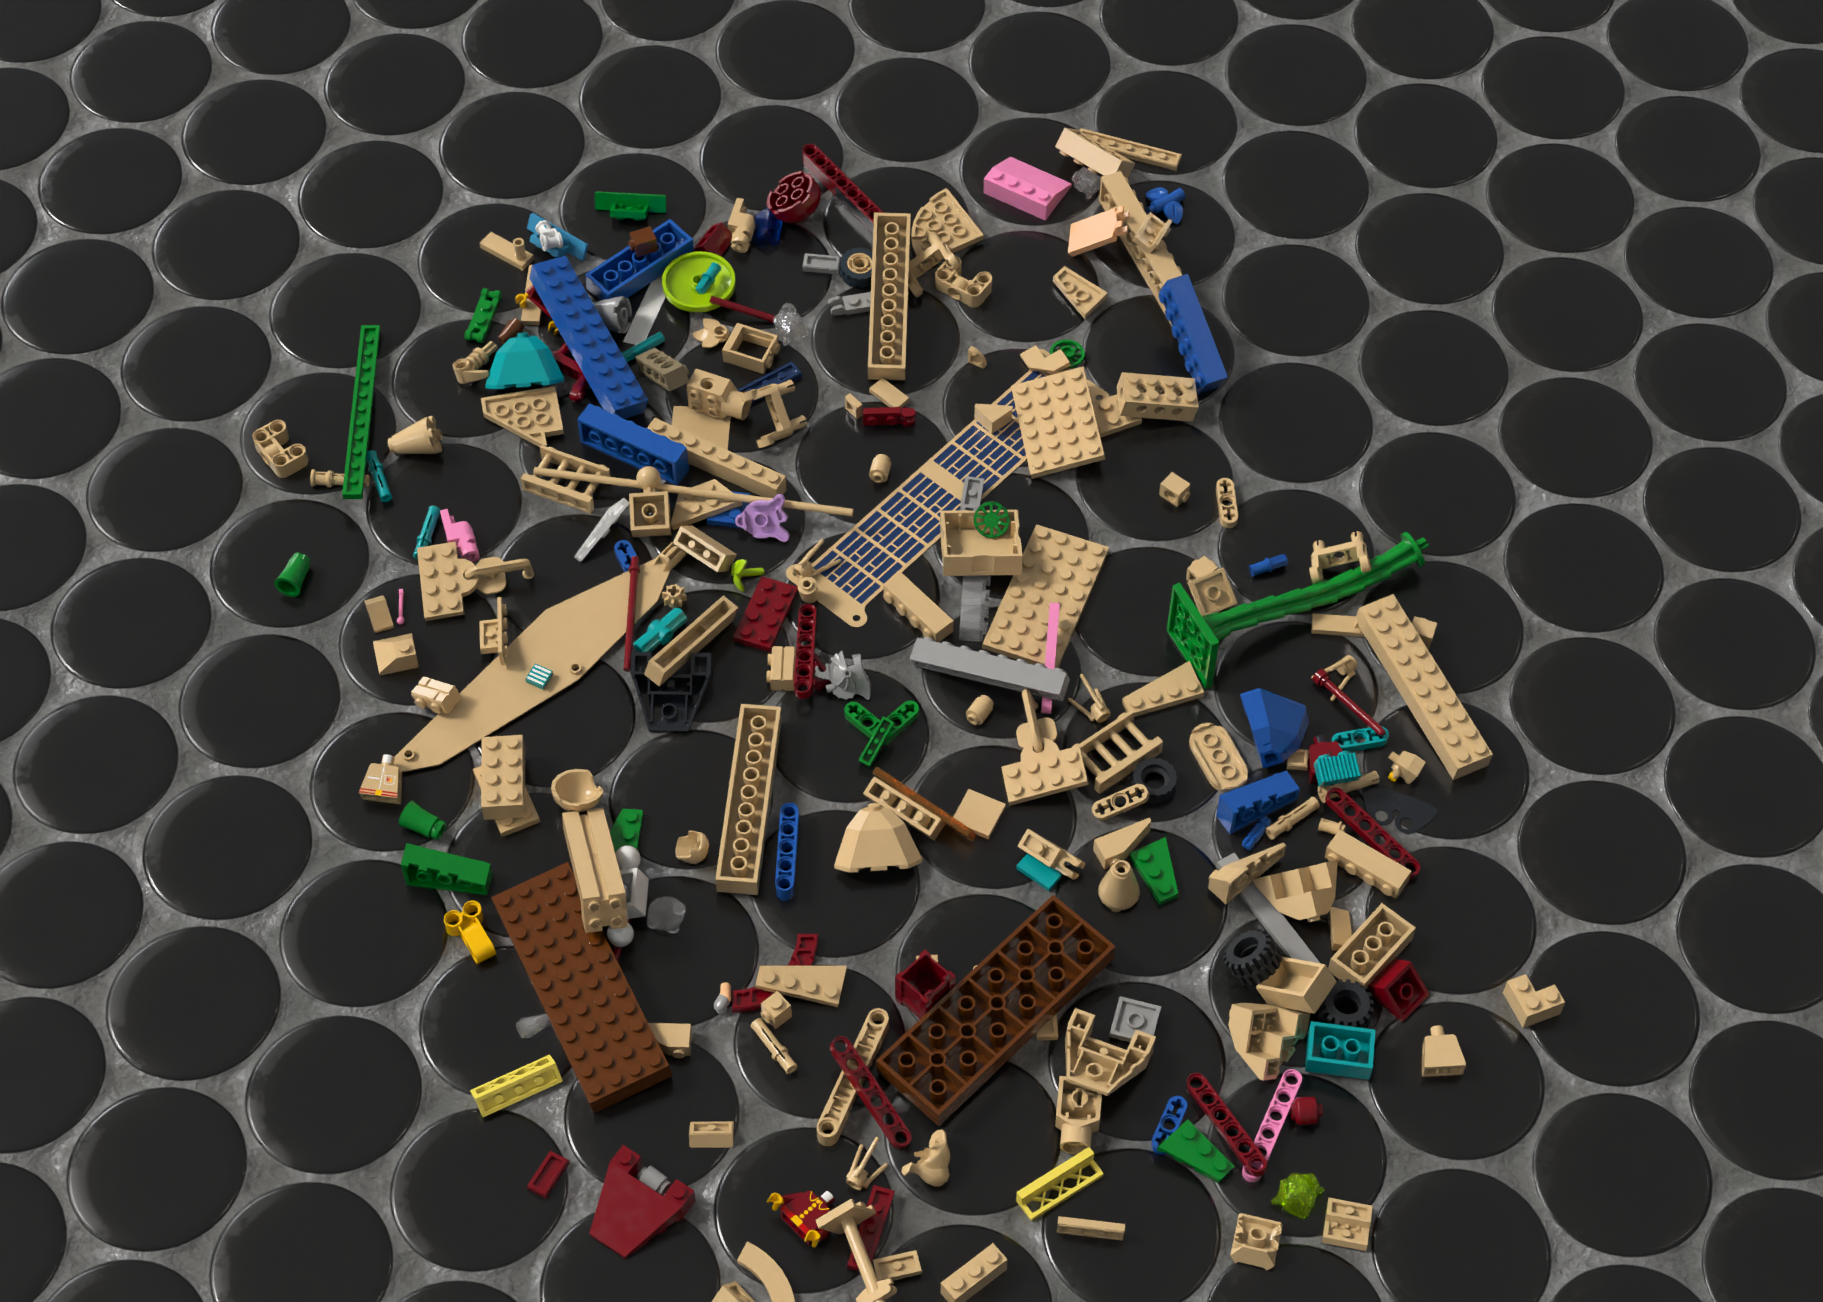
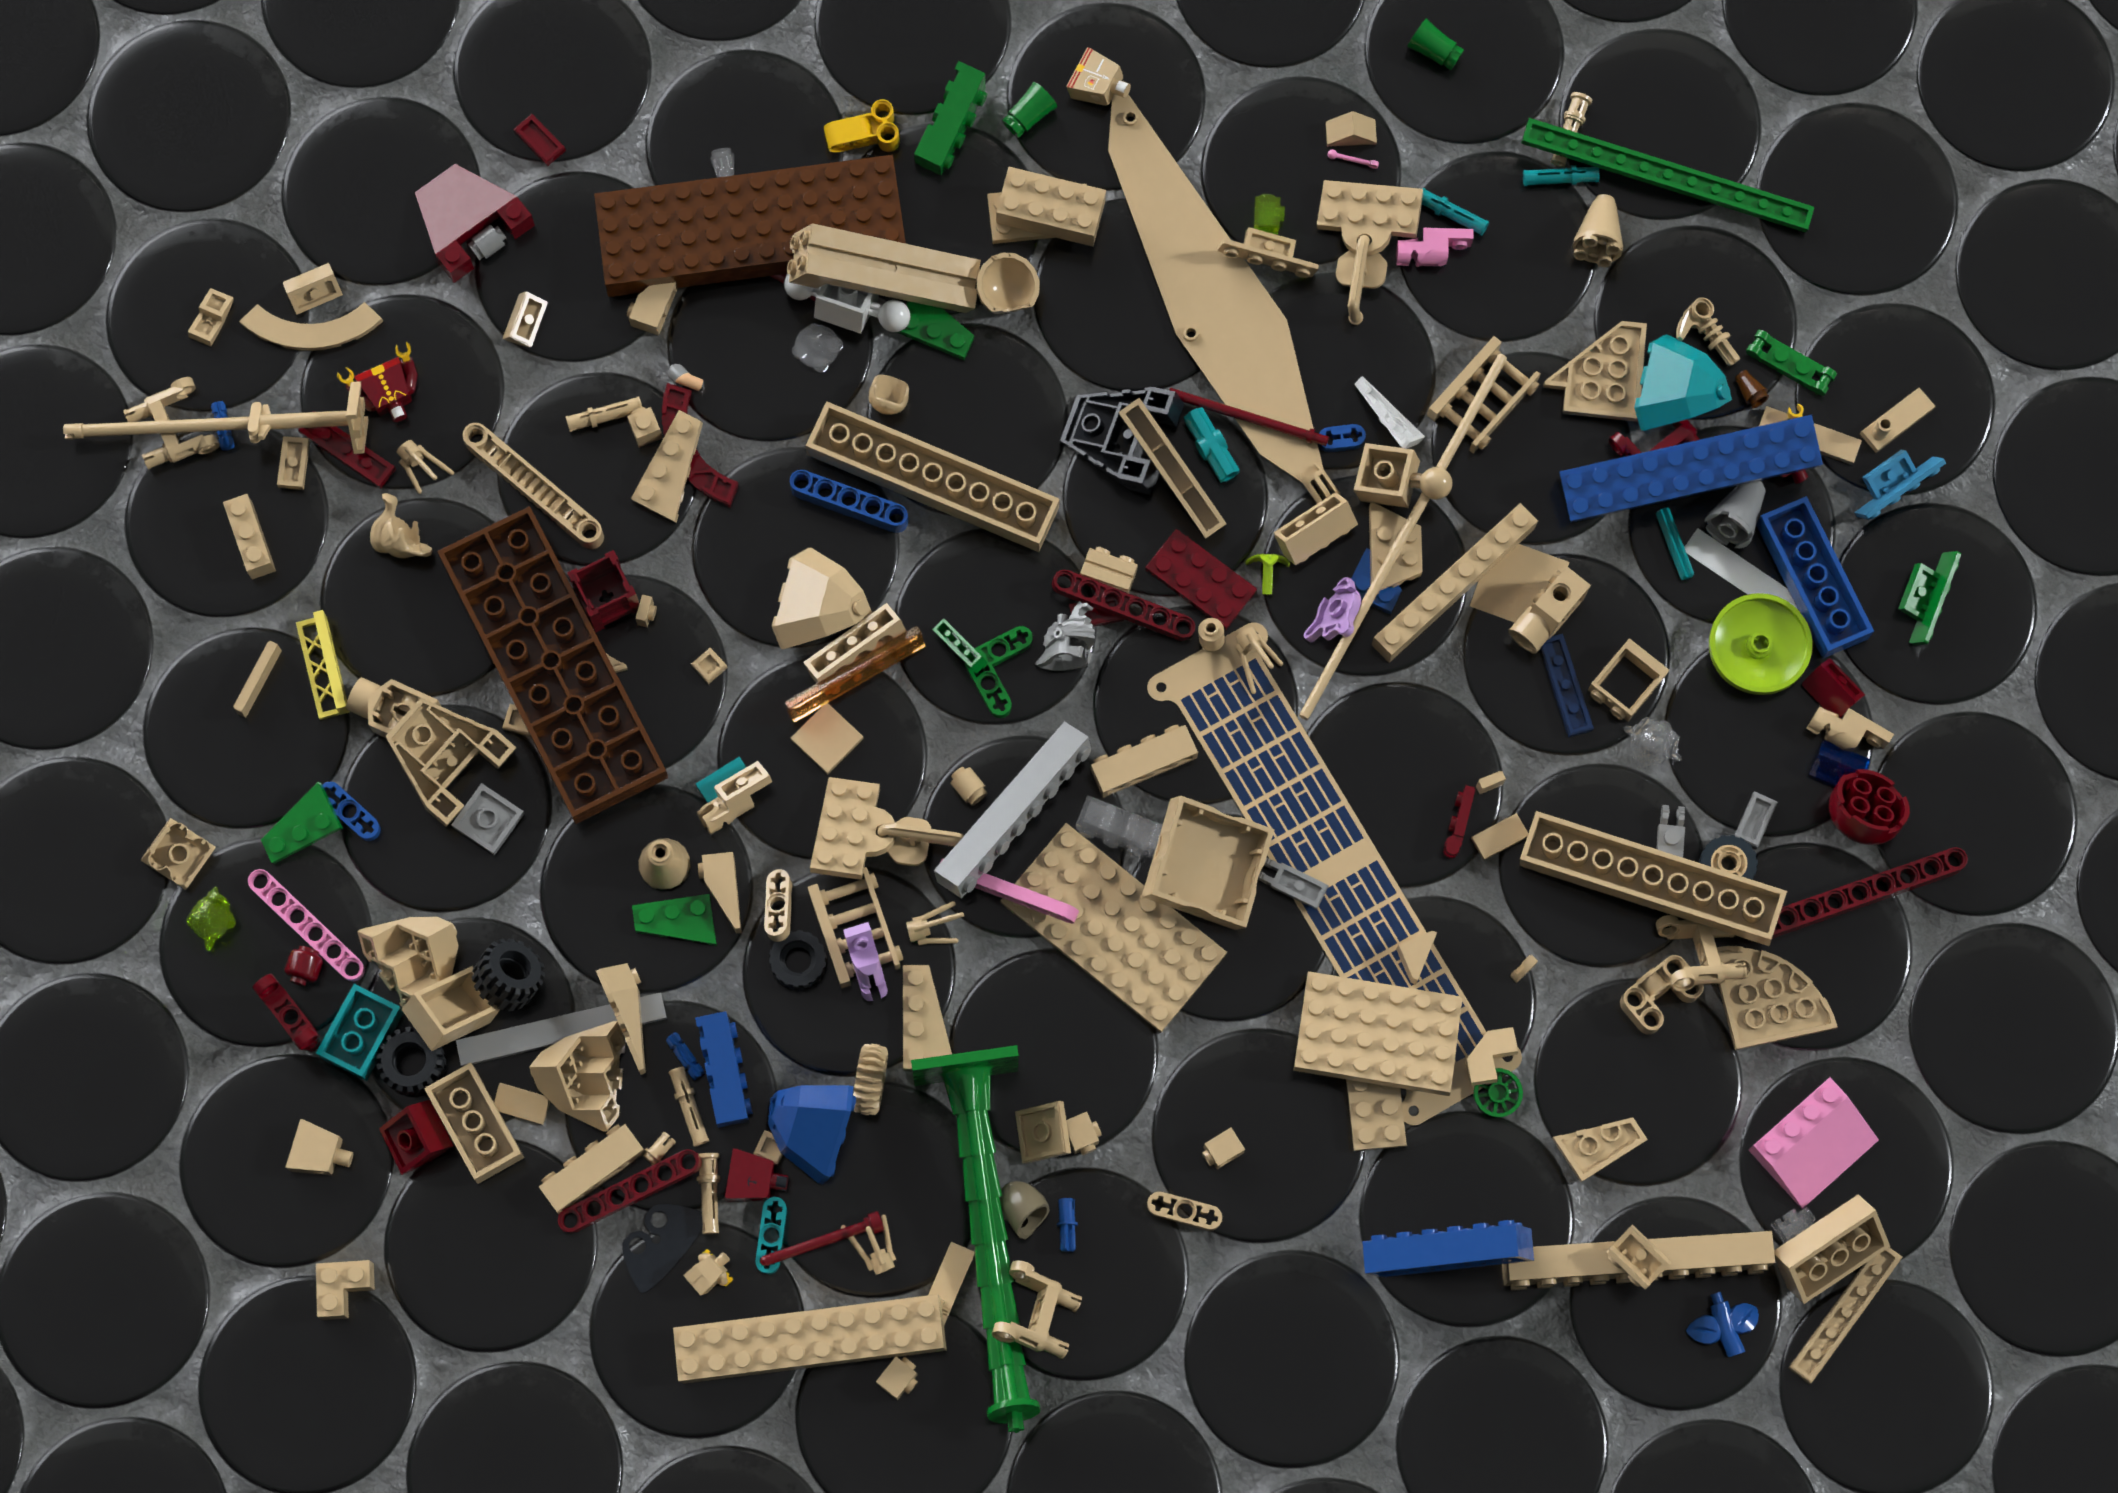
camera: 105 degrees right, 20 degrees up
(268, 444) = (1635, 59): tan beam -> none
(395, 654) = (1285, 138): tan slope -> none
(435, 695) = (1198, 163): tan brick -> none
(463, 645) = (1268, 213): none -> clear neon green brick
(516, 1085) = (651, 129): light yellow fence -> none
(539, 676) = (1190, 287): teal tile -> none
(548, 237) = (1888, 468): white connector -> none
(633, 443) = (1505, 485): blue brick -> none
(643, 241) = (1833, 579): reddish brown brick -> none
(662, 369) = (1611, 549): dark tan brick -> none
(674, 596) = (1254, 470): tan gear -> none
(708, 278) = (1752, 651): teal axle -> none
(712, 333) = (1675, 638): tan plate -> none
(740, 308) = (1695, 686): dark red bar -> none
(780, 418) = (1523, 673): tan connector -> none
(873, 1090) = (498, 489): dark red beam -> none
(880, 468) = (1378, 784): tan brick -> none
(952, 910) = (709, 665): none -> tan tile
(991, 519) = (1238, 888): green wheel -> none
(1097, 231) = (1686, 1197): light nougat tile -> none
(1142, 725) = (865, 959): none -> lavender plate
(1157, 397) = (1387, 1190): tan brick -> none
(1218, 757) = (807, 1052): tan tile -> none
(1221, 702) = (870, 1079): none -> tan gear
(1226, 1124) = (321, 866): dark red beam -> none
(1270, 584) = (1020, 1202): none -> dark tan piece
(1337, 769) = (720, 1175): teal brick -> none
(1347, 1224) = (159, 961): tan slope -> none
(1360, 1086) = (279, 1003): none -> dark red connector

